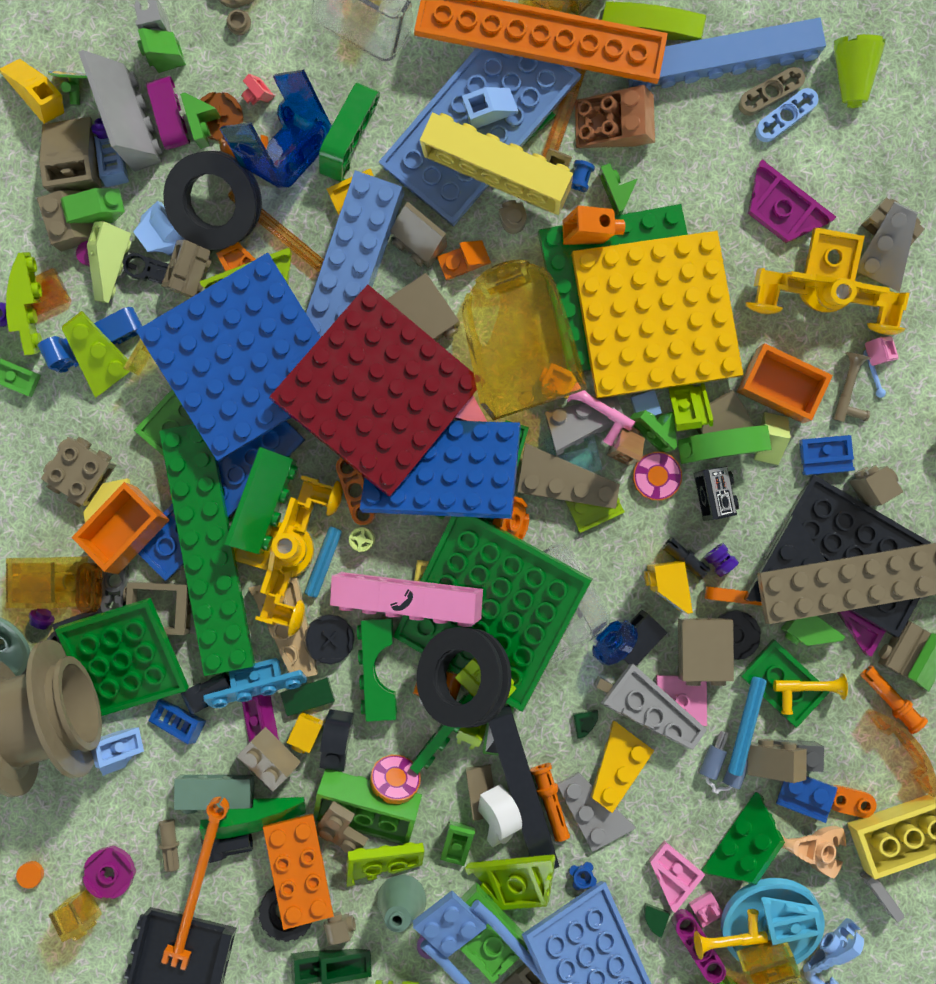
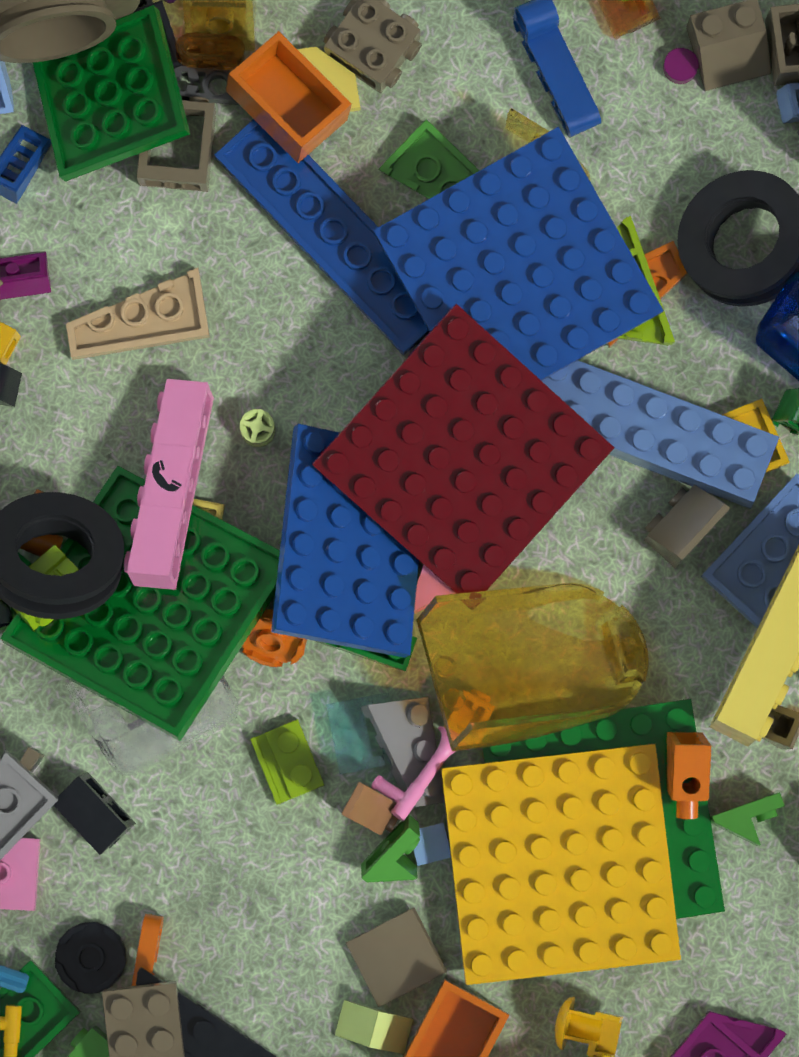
camera: 85 degrees right, 5 degrees down
(93, 206) = (743, 74): bright green slope -> none
(95, 353) = (535, 70): lime wing -> none
(105, 253) = (672, 88): yellowish green slope -> none
(153, 269) = (653, 155): black piece -> none
(156, 231) = (706, 159): light blue slope -> none
(186, 268) = (651, 199): dark tan brick -> none
(194, 695) = (53, 200): black piece -> none
(207, 561) = (250, 213): green plate -> none
(253, 681) = (68, 272): dark azure bracket -> none
(261, 502) = (315, 290): green slope -> none
(288, 238) = (690, 345): clear orange axle -> none
(290, 552) = (248, 323): yellow piece -> none
(307, 696) = (41, 344): dark green tile -> none
(323, 562) = (228, 373): dark azure axle -> none
(328, 639) = (119, 376): black tile -> none
(347, 482) = (338, 409): orange beam -> none
(379, 701) = (28, 441): green arch -> none
(426, 308) = (581, 530): dark tan brick -> none
(464, 259) = (654, 591): orange slope -> none
(513, 216) = (713, 664): dark tan plate -> none
(561, 480) = (327, 708): dark tan wing -> none
(581, 175) = (770, 766): blue bush -> none
(615, 642) = (90, 777): clear blue tile -> none
(657, 476) = (326, 855): tile -> none
(670, 583) = (168, 858): yellow slope -> none
(681, 554) = (204, 890): black pin -> none
(690, 407) = (422, 905): lime plate -> none
(705, 650) = (70, 907): dark tan brick -> none
(716, 493) = (295, 938): black slope -> none
(721, 560) = (207, 937): dark purple wheel -> none
(724, 444) = (365, 952): bright green arch -> none

